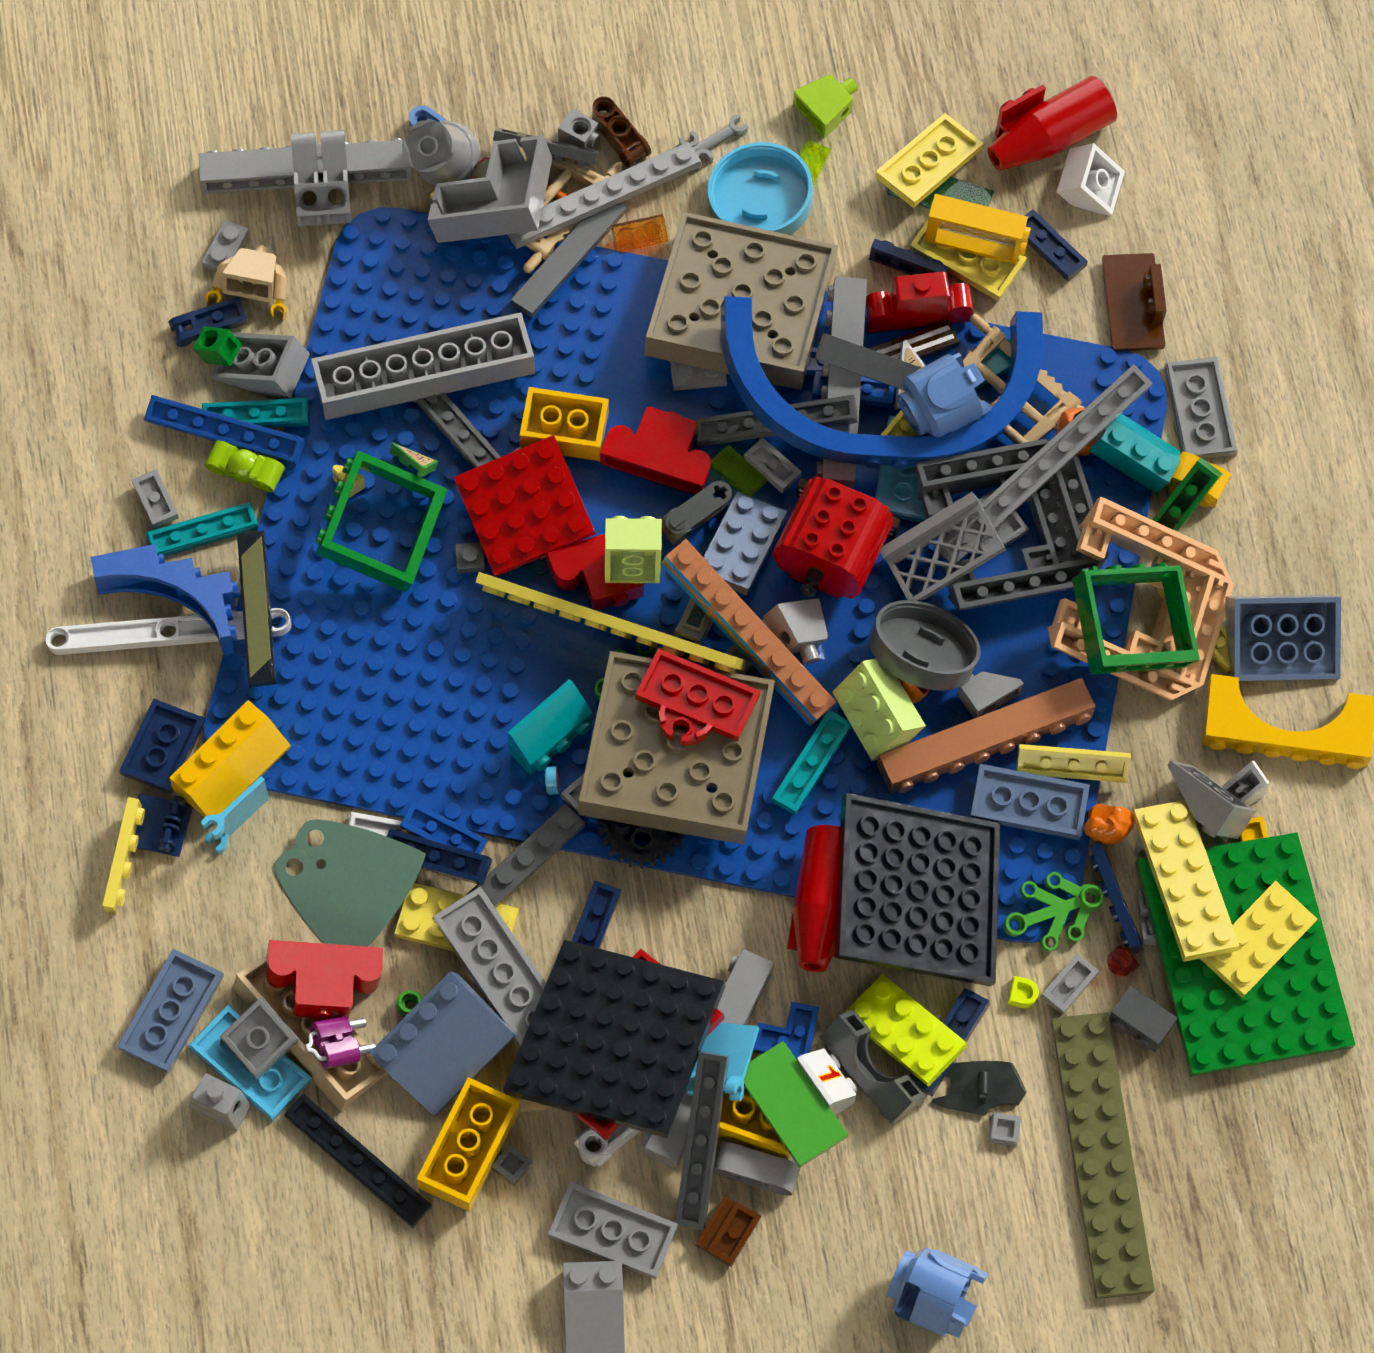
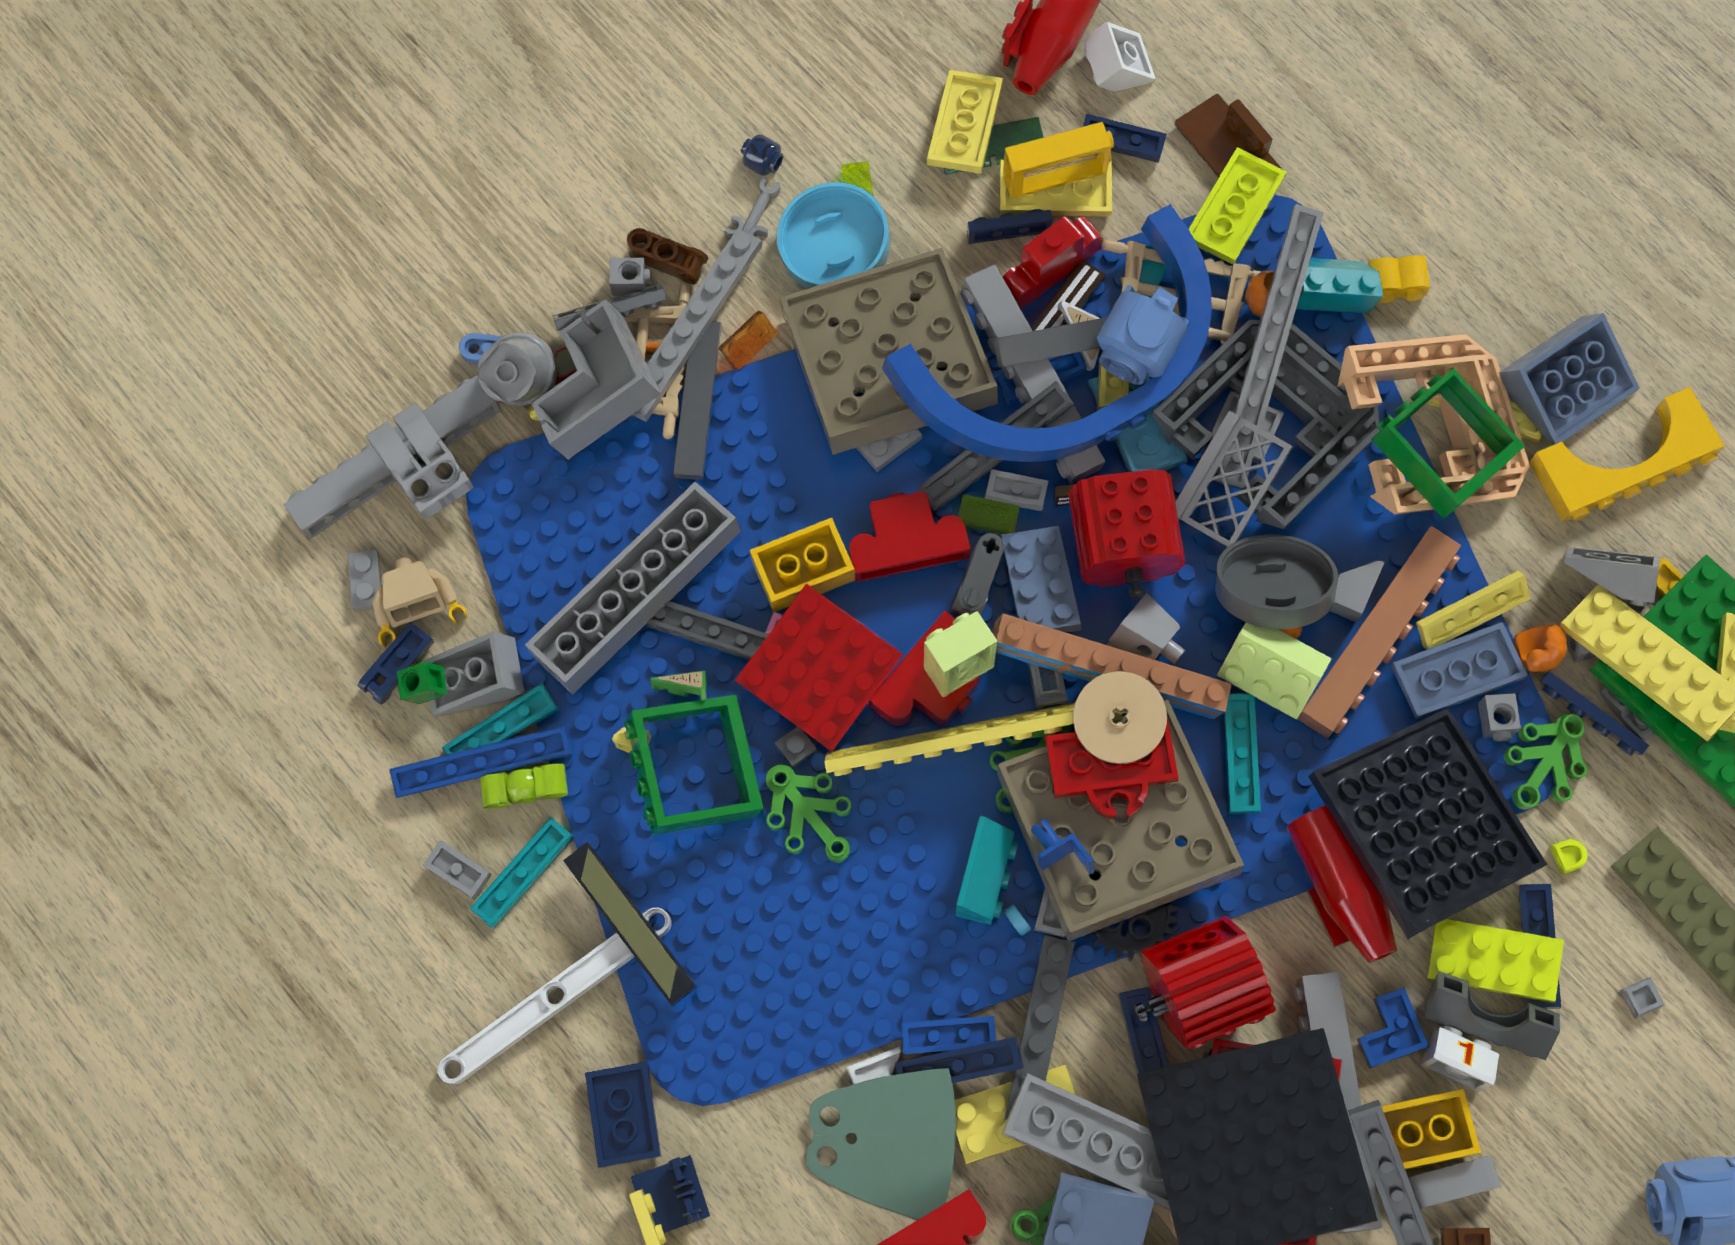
camera: 25 degrees left, 5 degrees up
(146, 572) = (496, 949): arch -> none
(229, 761) = (702, 1093): yellow slope -> none
(235, 814) = (736, 1164): medium azure flag -> none
(445, 605) = (805, 808): none -> bright green plant
(609, 733) = (1059, 848): none -> blue bracket
(659, 904) = (1206, 983): none -> red piece
(718, 686) = (1144, 718): none -> tan piece
(737, 1043) = (1366, 1081): medium azure flag -> none
(748, 96) = (762, 155): none -> dark blue head
(792, 1105) = (1454, 1105): bright green tile -> none
(825, 102) = (835, 120): lime torso -> none
(981, 1086) = (1595, 968): pearl dark grey shield -> none
(1037, 842) = (1506, 706): none -> light grey brick
(1069, 984) = (1606, 821): light grey plate -> none
(1102, 347) = (1236, 205): none -> neon yellow plate
(1121, 962) = (1636, 771): clear red plate -> none
(1142, 1019) = (1693, 815): dark grey brick -> none
(1188, 495) = (1408, 300): green brick -> none
(1201, 408) = (1353, 211): light grey tile -> none
(1248, 784) = (1635, 535): white slope -> none

